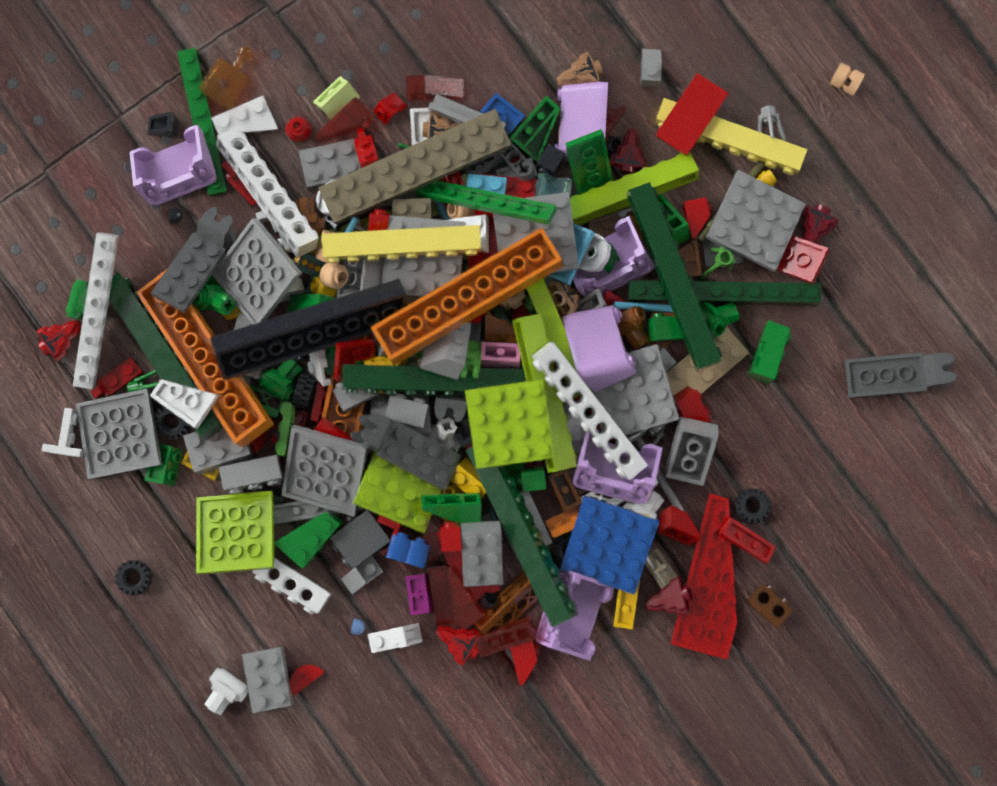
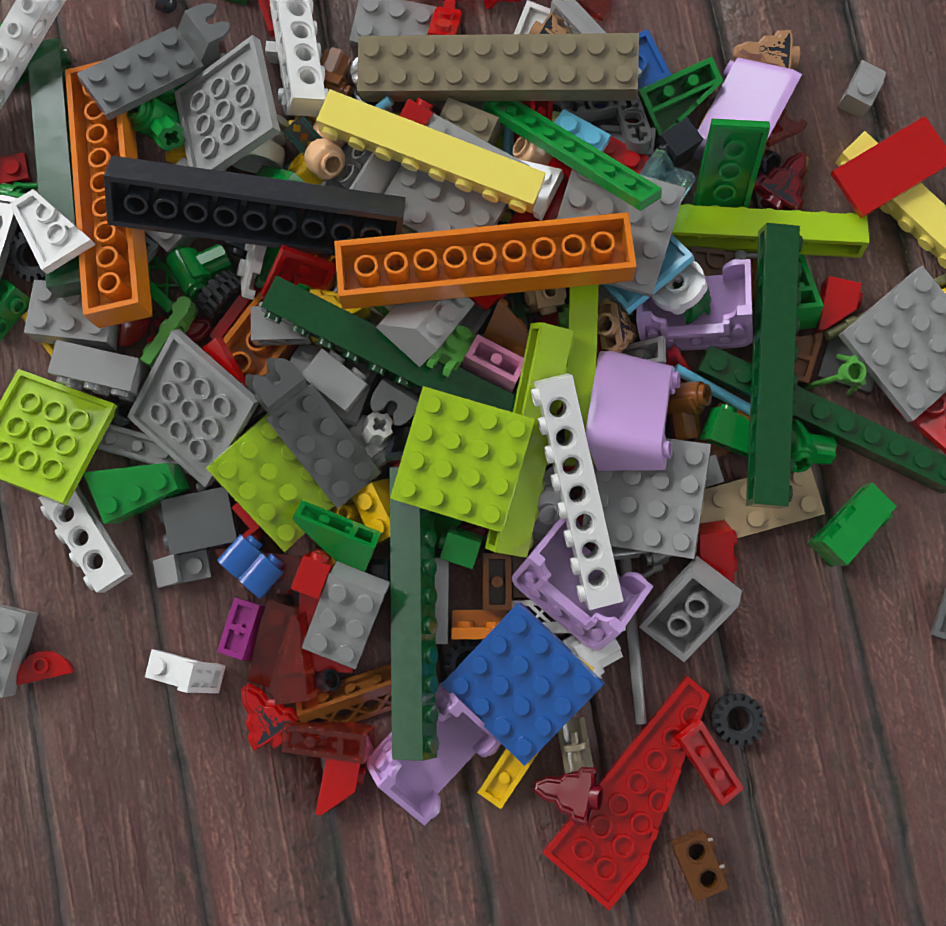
camera: 25 degrees right, 0 degrees up
(357, 627) = (142, 634): medium blue hinge -> none
(678, 526) = (625, 699): red slope -> none

